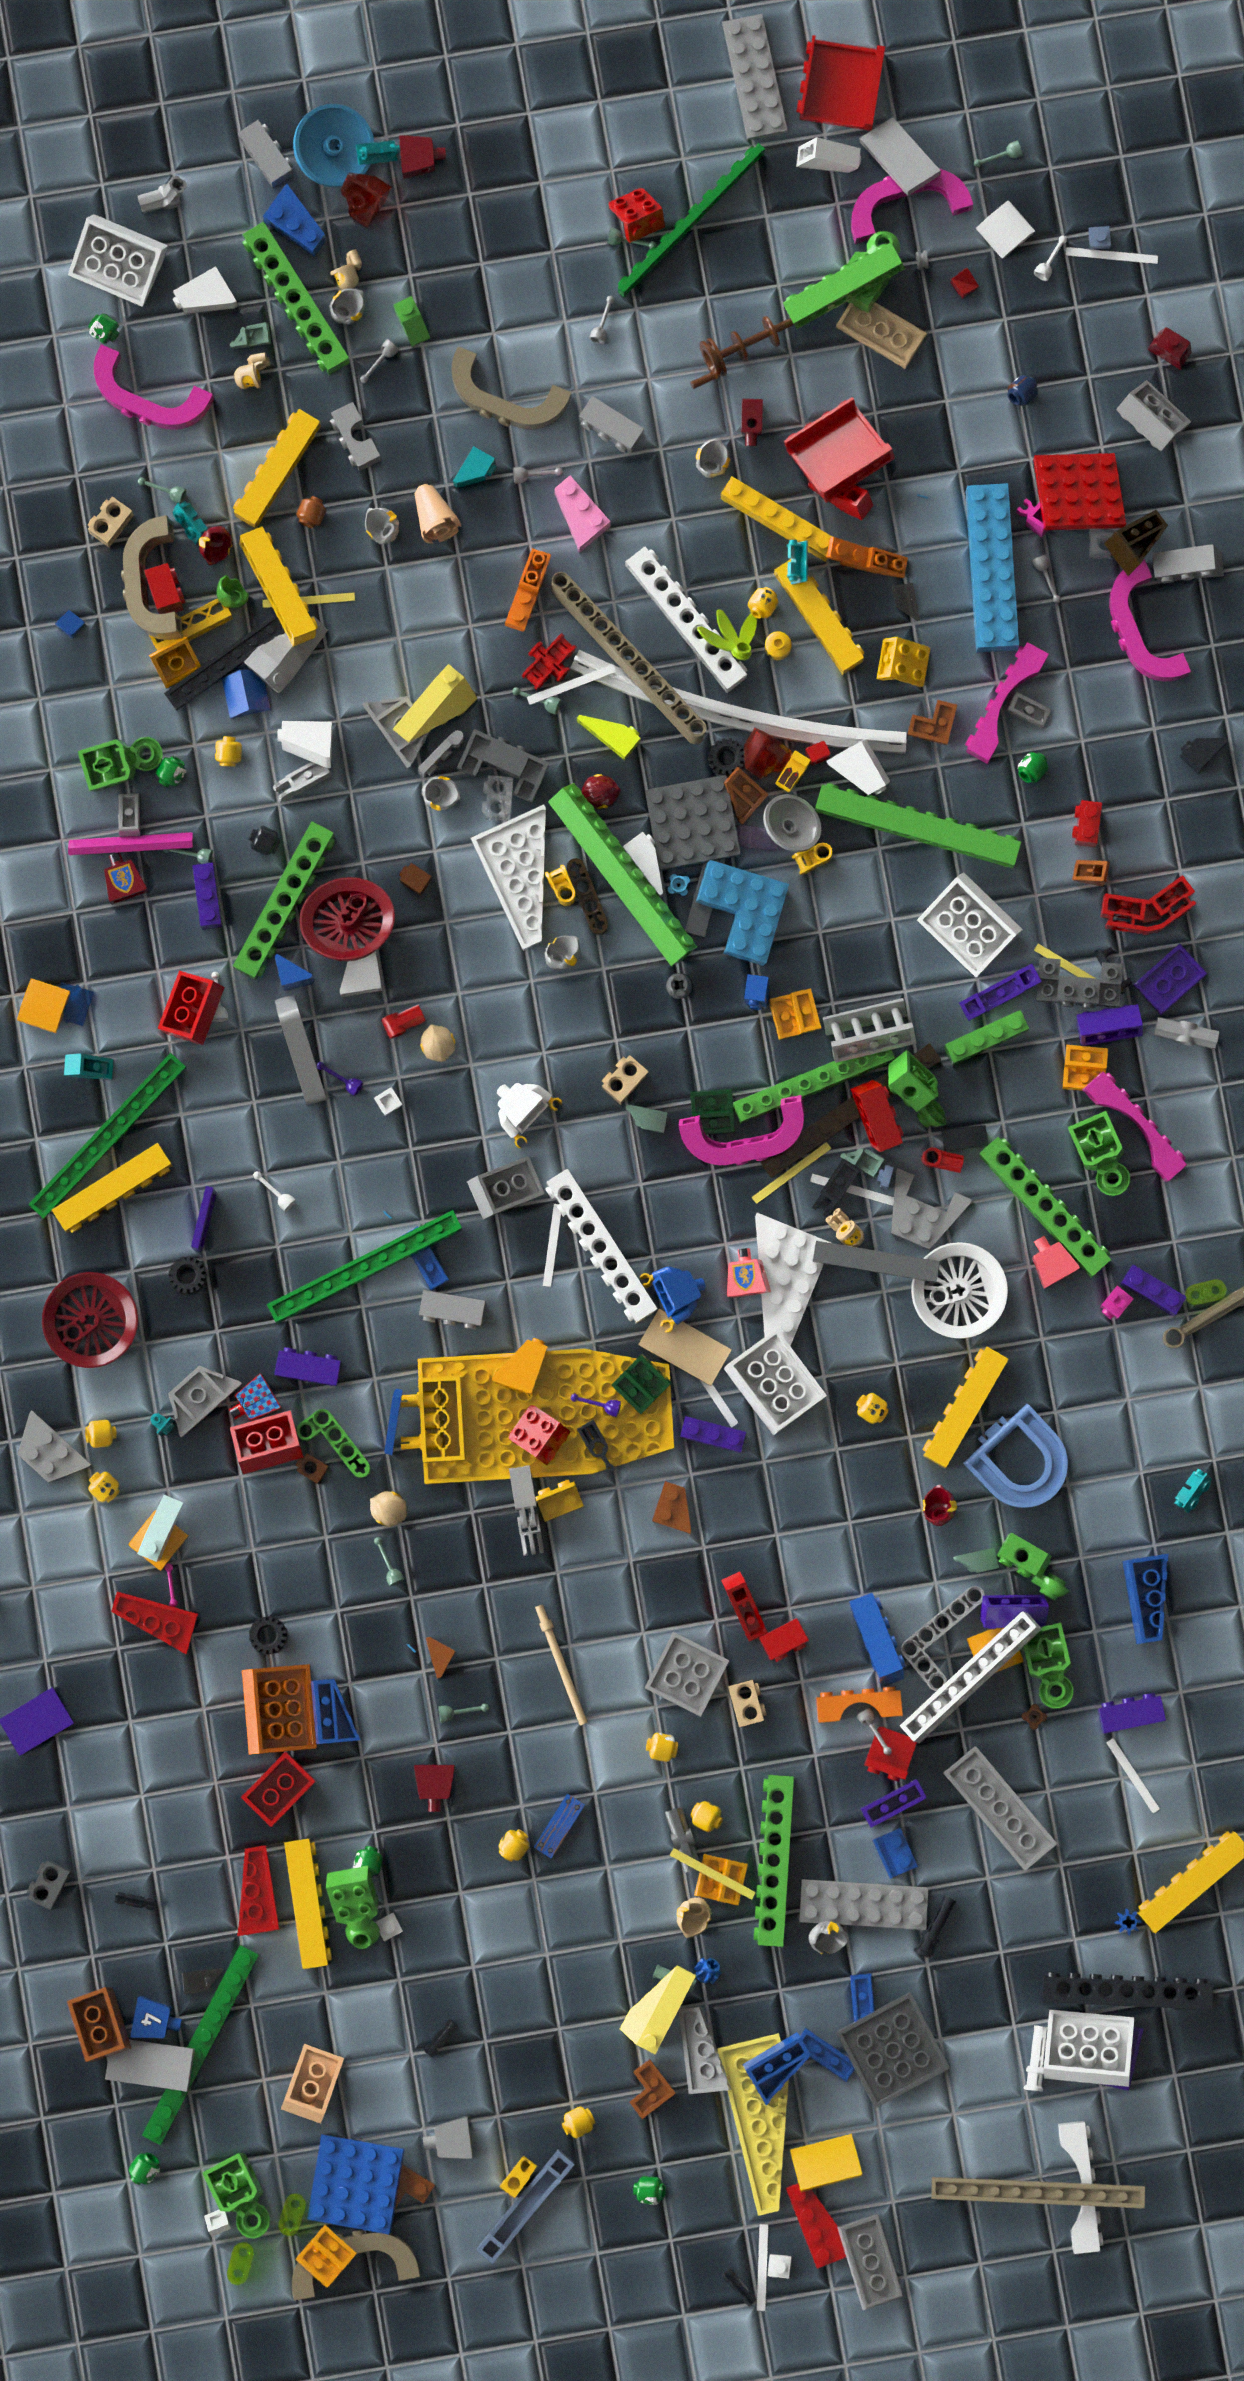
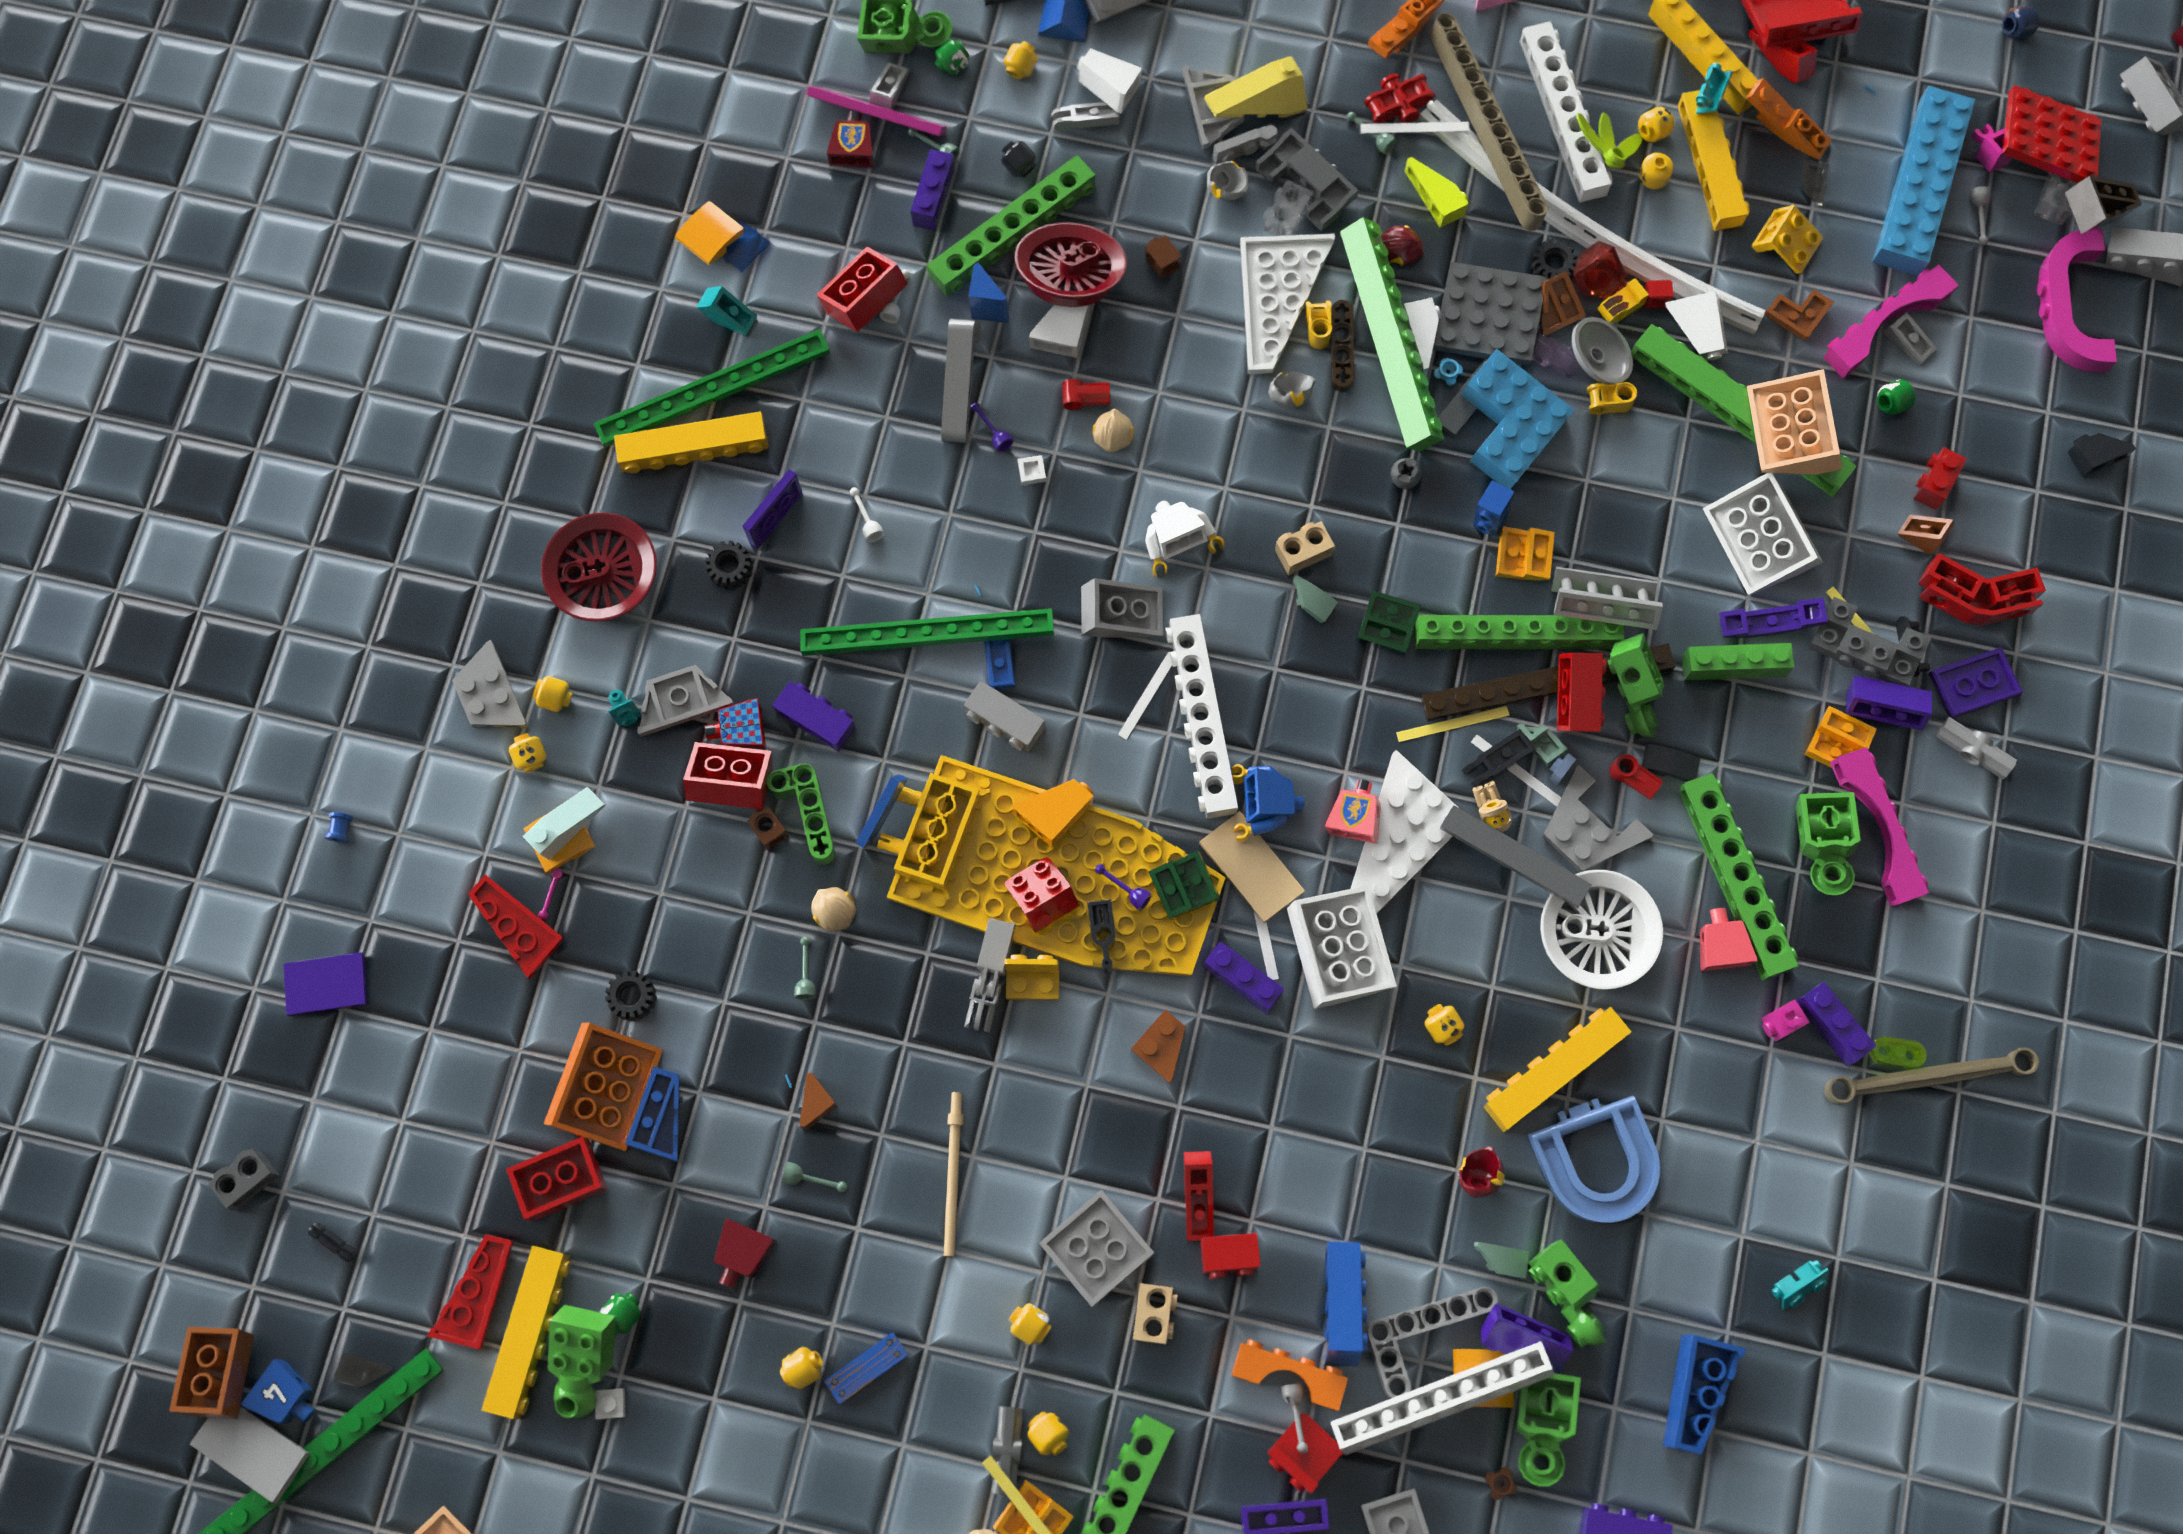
camera: 25 degrees right, 10 degrees down
(747, 1149) = (1363, 653): dark pink arch -> none
(961, 831) = (1794, 425): none -> light nougat slope

